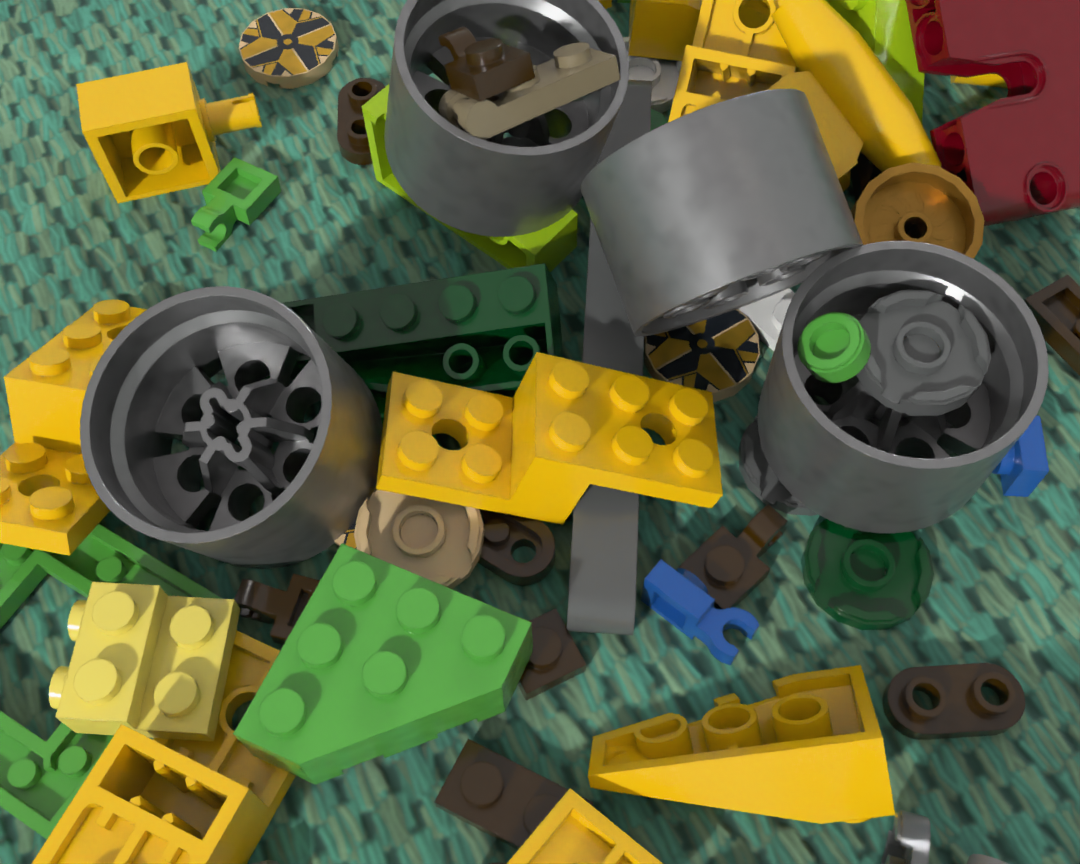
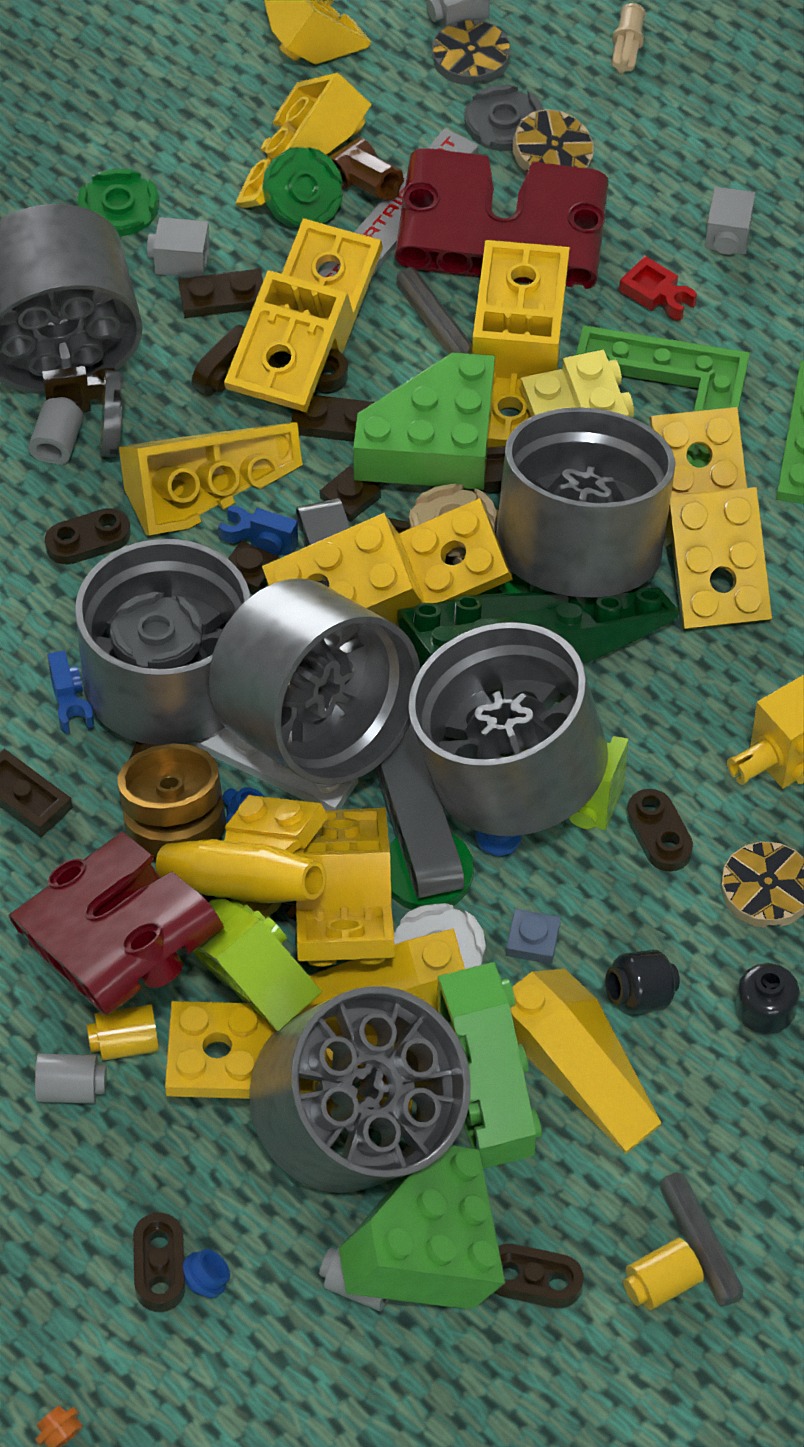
camera: 160 degrees right, 5 degrees down
(234, 194) = (720, 724): bright green plate -> none
(484, 66) = (507, 662): dark brown plate -> none
(565, 78) = (475, 688): dark tan plate -> none
(834, 347) = (212, 608): bright green tile -> none

